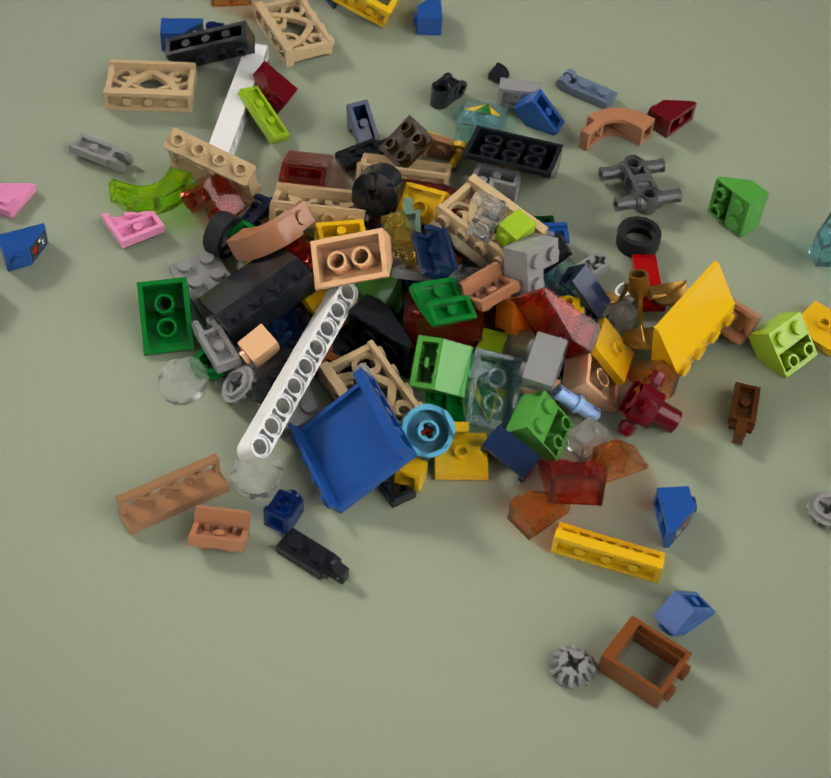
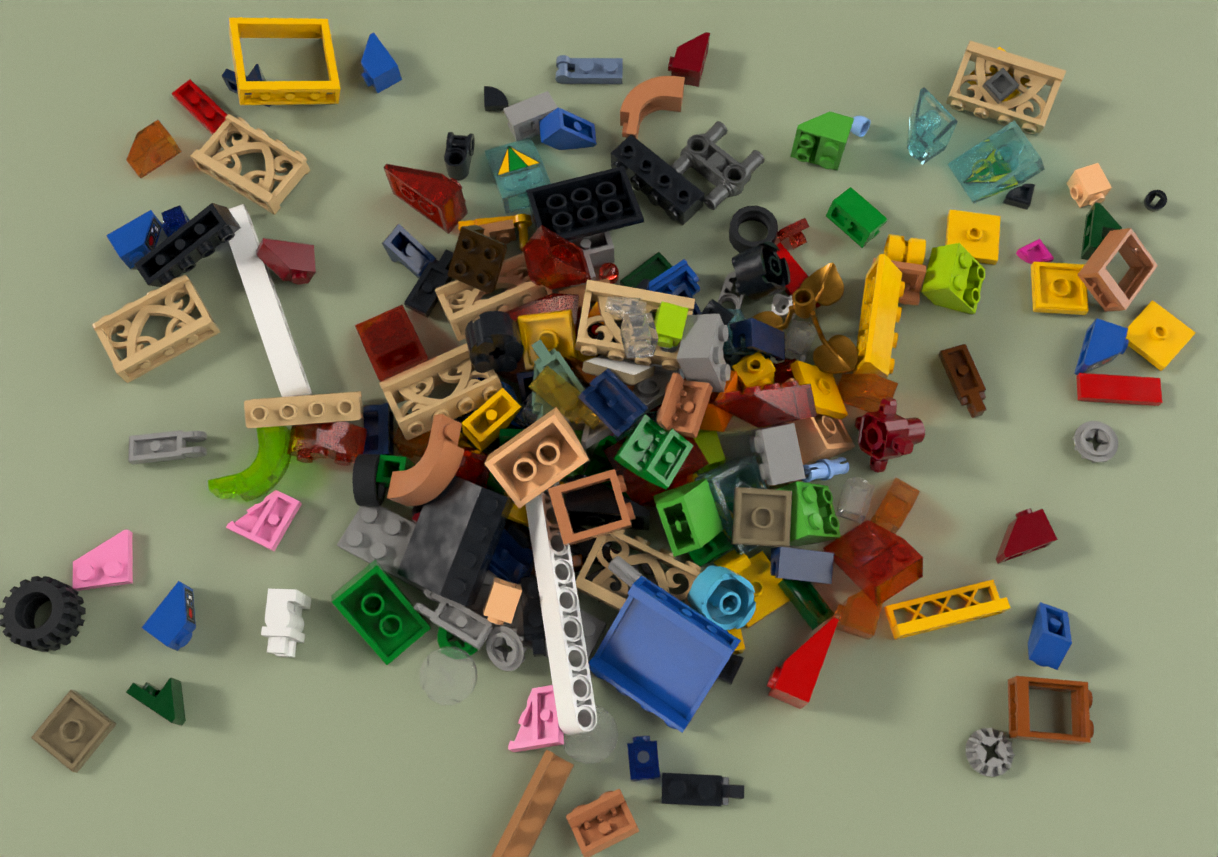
camera: 25 degrees left, 20 degrees up
(96, 282) = (284, 621): none -> white hips
(222, 443) = (538, 722): none -> bright pink wing
(264, 114) = (300, 298): lime tile -> none
(366, 331) = (562, 516): none -> nougat window
(404, 94) = (429, 194): none -> clear red slope
(458, 512) = (798, 674): none -> red slope
(460, 162) = (554, 260): none -> clear red slope
(496, 481) = (807, 601): none -> dark green tile
(499, 399) = (762, 517): none -> dark tan tile
(586, 173) = (658, 180): none -> black brick
(620, 255) = (761, 271): none -> black brick
(671, 252) = (794, 233): none -> clear red tile
(673, 511) = (977, 534): blue slope -> none
(714, 537) = (1026, 534): none -> dark red slope
(733, 265) = (856, 217): none -> green hinge
(759, 304) = (905, 251): none -> yellow wheel
(775, 216) = (860, 125): none -> light blue hinge

